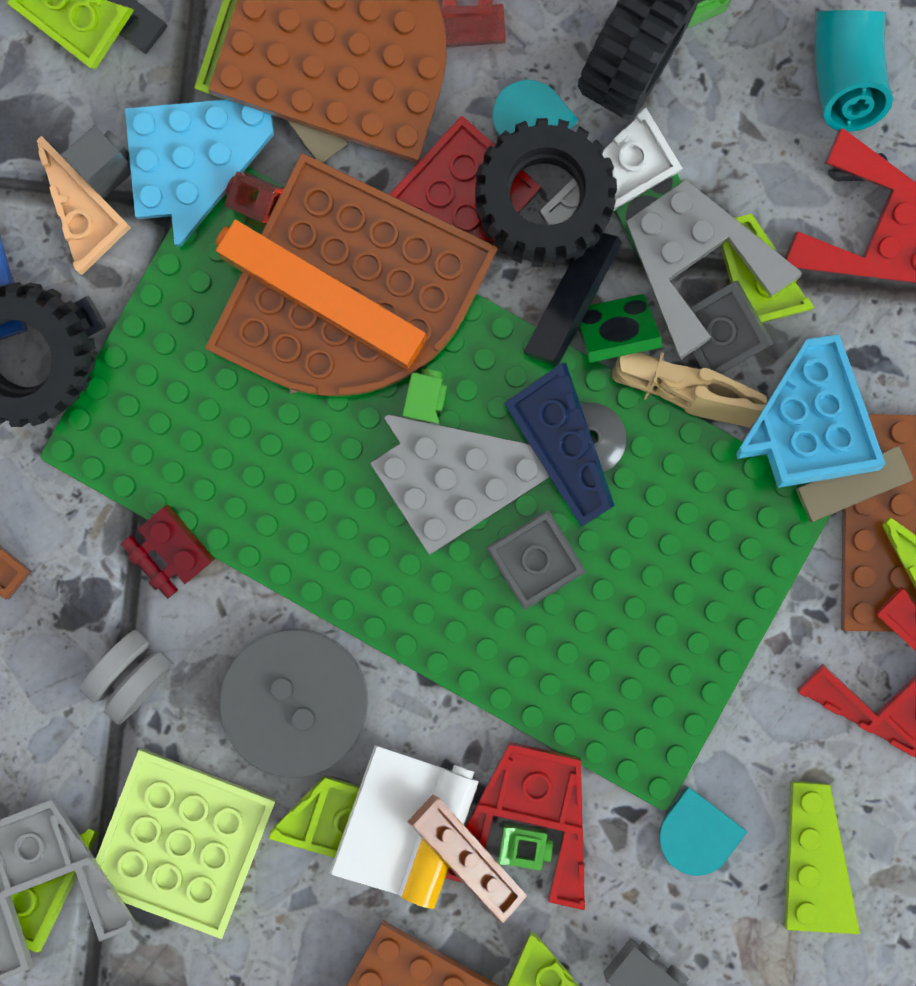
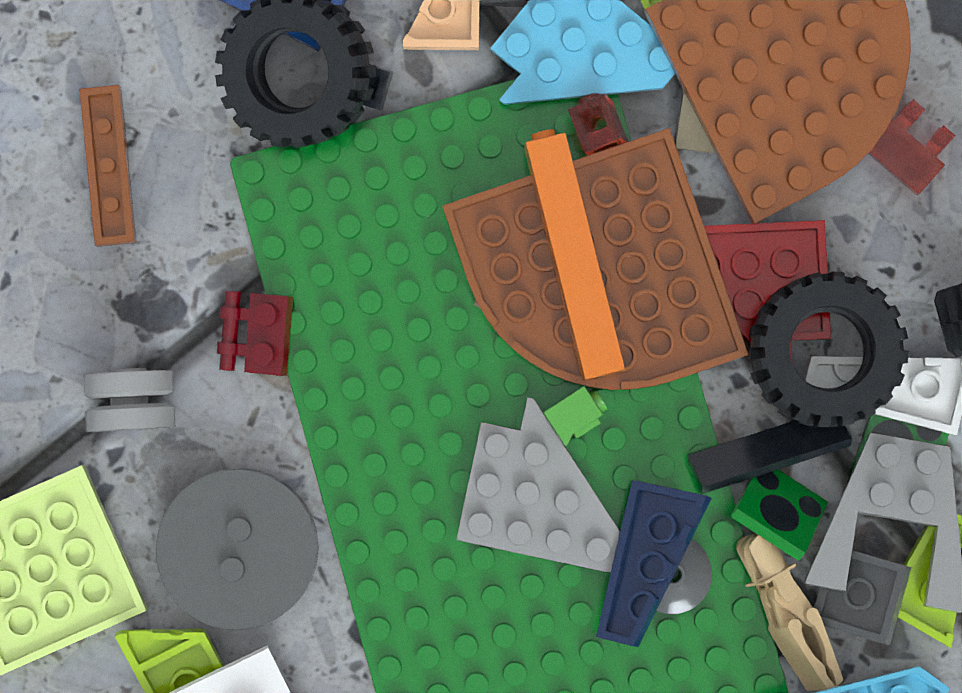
camera: 40 degrees right, 0 degrees up
(526, 102) = (885, 264): teal tile -> none
(536, 559) = (535, 626): dark grey tile -> none

